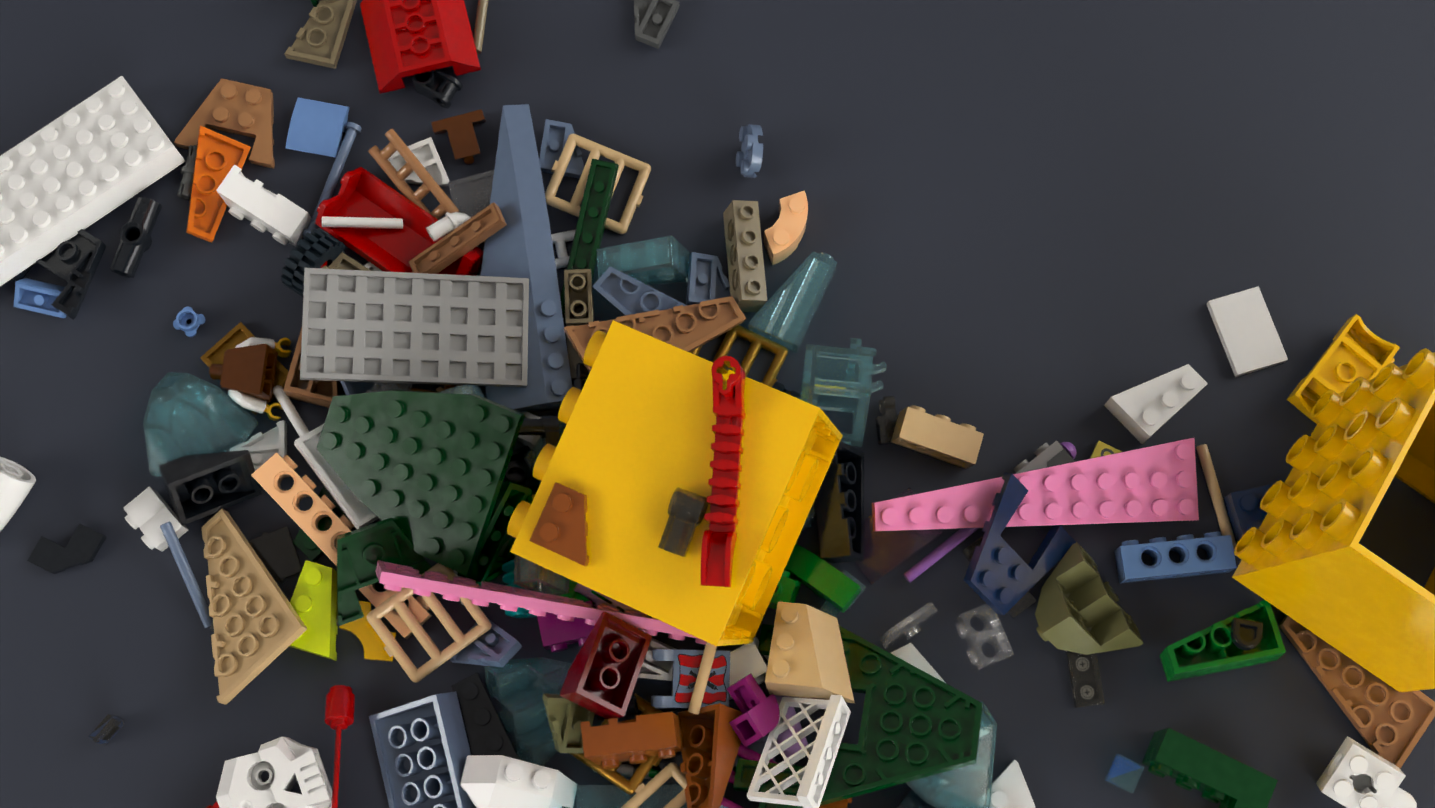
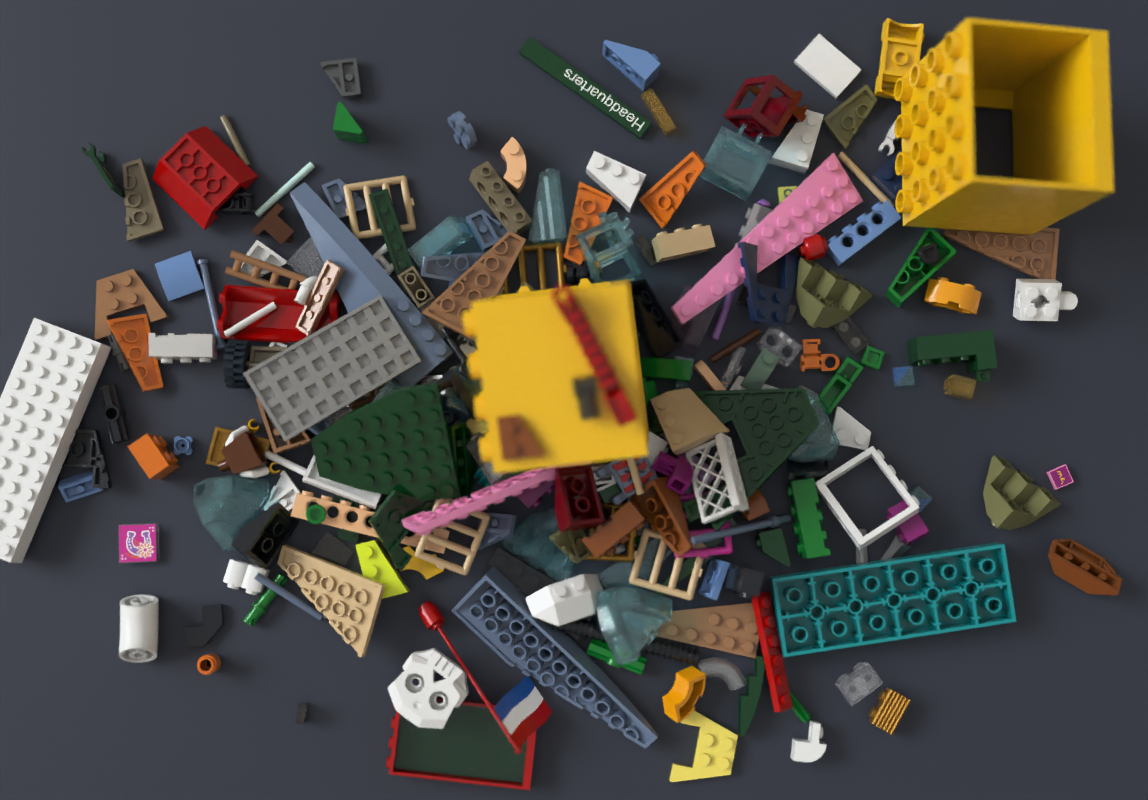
camera: 35 degrees left, 10 degrees up
(39, 597) = (203, 664): none -> orange brick
(60, 403) = (138, 543): none -> tile
(145, 311) = (154, 456): none -> orange brick
(146, 566) = (260, 606): none -> green pin
(281, 491) = (316, 514): none -> green tile
(500, 101) = (285, 189): none -> light aqua bar
(615, 69) = (346, 127): none -> green slope
(657, 687) = (608, 492): none -> green tile
(846, 322) = (587, 206): none -> orange wing
(871, 620) = (708, 376): none -> light nougat beam
(902, 314) = (616, 178): none -> white wedge
(929, 189) = (584, 88): none -> dark green tile
(939, 603) = (732, 347): none -> reddish brown bar
(942, 651) = (760, 370): none -> sand green slope
(962, 363) = (671, 190): none -> orange wing
(1001, 266) = (658, 112): none -> clear yellow piece
(1005, 189) = (634, 63): none -> medium blue slope
(1017, 679) = (812, 358): none -> orange piece
(1034, 732) = (840, 383): none -> green slope
(1061, 377) = (735, 162): none -> clear light blue piece
(1097, 725) = (872, 358): none -> green tile
(1100, 539) = (813, 247): none -> red head
(1147, 346) = (766, 113): none -> dark red piece
(1240, 406) = (848, 116): none -> olive wing
(1249, 708) = (953, 296): none -> light orange brick
(1273, 465) = (888, 141): none -> white plate

